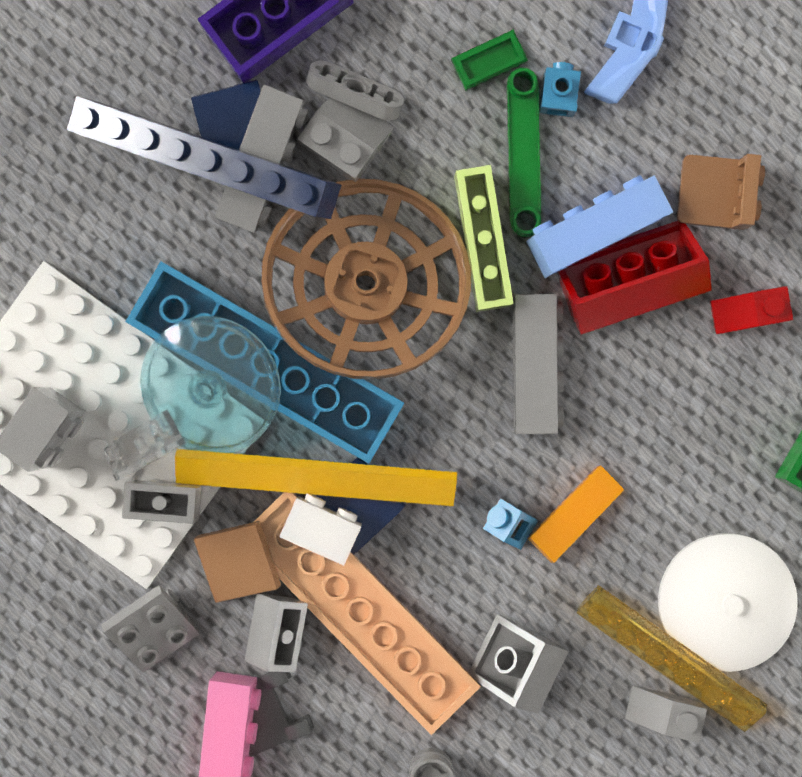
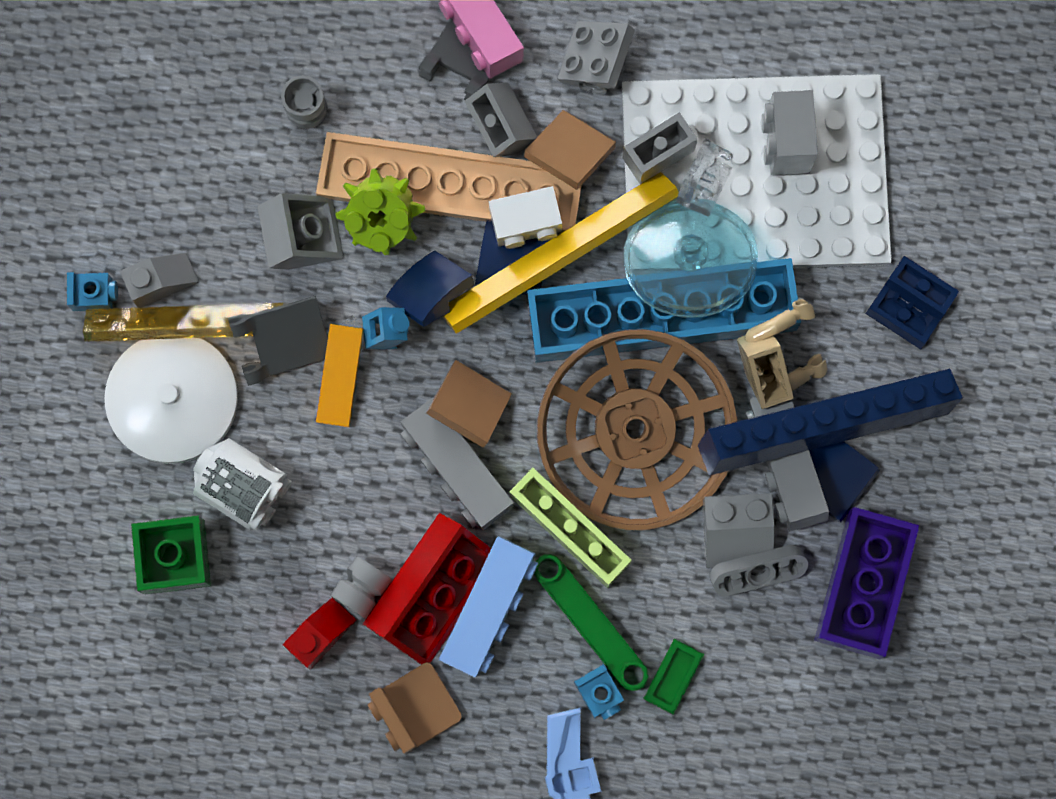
camera: 150 degrees right, 10 degrees down
(38, 221) = (918, 289): none -> dark blue slope
(215, 252) = (765, 362): none -> tan torso
(441, 627) = (376, 195): none -> lime brick
(447, 530) = (429, 287): none -> dark blue slope
(488, 406) = (469, 403): none -> medium nougat tile
(602, 581) = (283, 337): none -> dark grey flag
(686, 322) = (361, 587): none -> light grey wheel
(729, 482) = (239, 483): none -> white cylinder
(742, 754) = (101, 299): none -> dark azure brick

